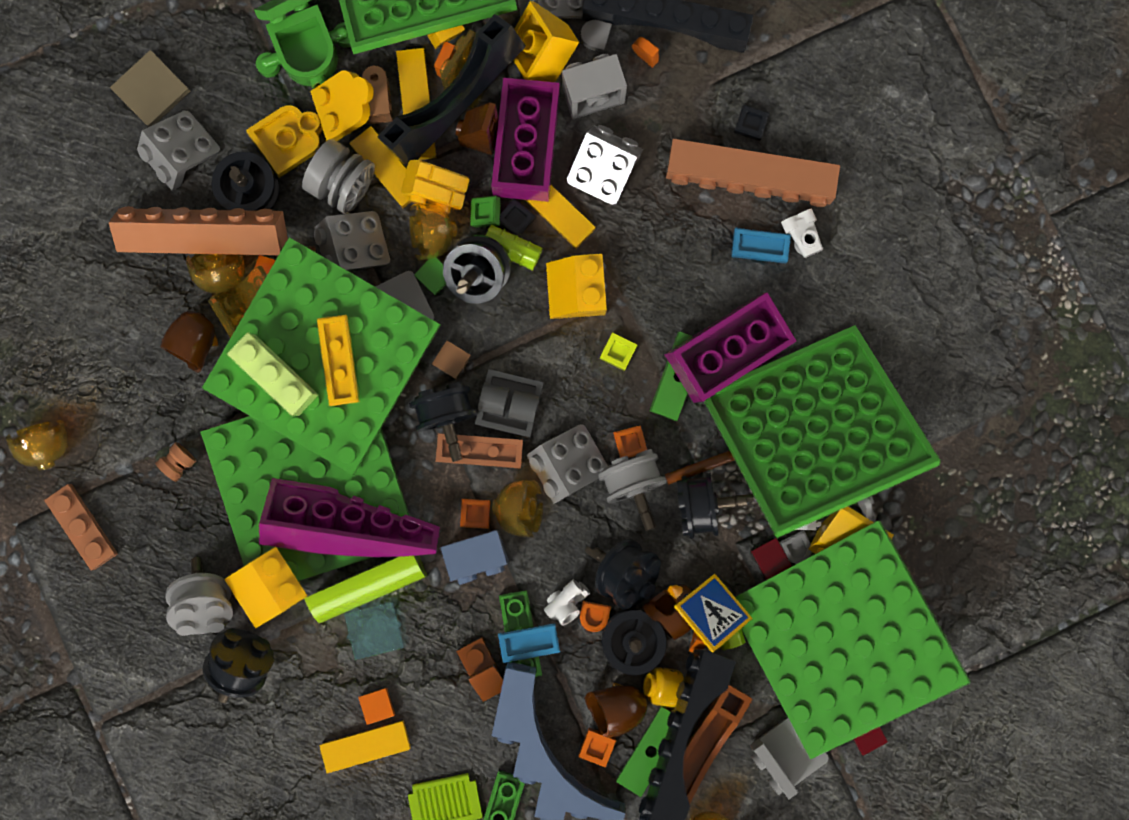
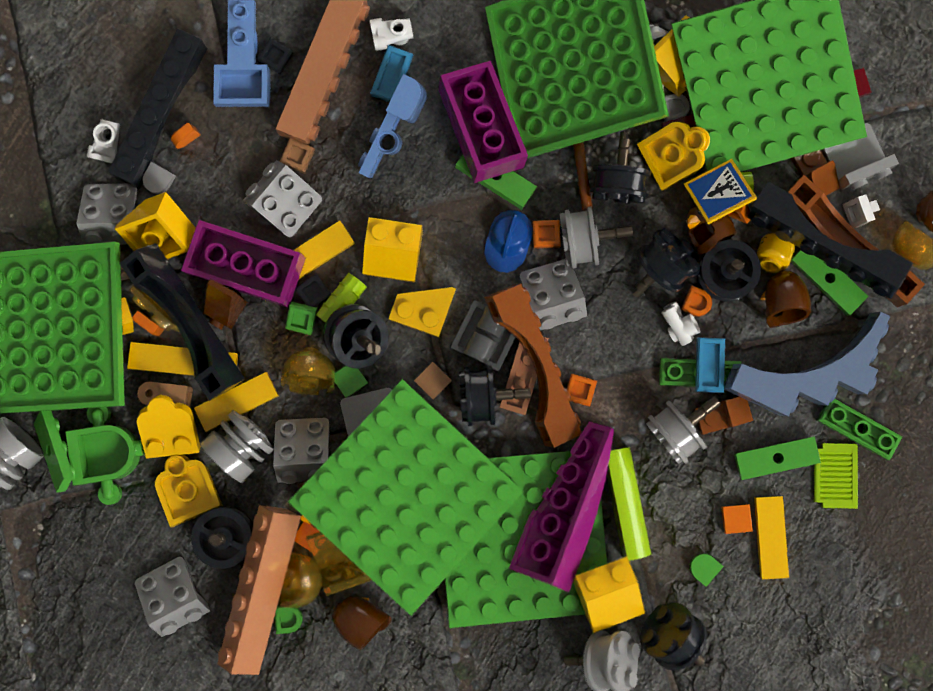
camera: 80 degrees left, 0 degrees up
(150, 89) = (106, 612): dark tan tile -> none
(175, 462) = (471, 659): nougat wheel -> none
(177, 269) = (287, 619): none -> bright green tile
(272, 374) = (416, 542): yellowish green brick -> none
(318, 683) = (704, 568): none -> bright green tile
(338, 360) = (415, 480): yellow tile -> none
(374, 630) = (667, 507): clear light blue piece -> none
(434, 185) = (266, 358): yellow brick -> none
(440, 491) = (554, 415): none -> dark orange arch
(451, 623) = (678, 432): none -> light grey wheel
(455, 751) = (792, 456): none -> bright green tile
(475, 556) = (622, 395): sand blue brick -> none
(518, 508) = (585, 348): clear yellow cylinder -> none
(522, 333) = (423, 309): none -> yellow wing
(593, 85) = (207, 189): light grey brick -> none
(596, 747) = (816, 326): orange plate -> none
(614, 405) = (508, 241): none -> blue piece
(618, 351) = (460, 226): neon yellow tile -> none
(653, 169) = (297, 155): none -> medium nougat tile
(716, 92) = (241, 80): none -> medium blue plate
(728, 263) = (404, 105): none -> medium blue plate
(730, 769) = (860, 211): none -> white tile
(746, 557) = (675, 152): none -> yellow plate
(761, 716) = (818, 171): none -> dark orange slope

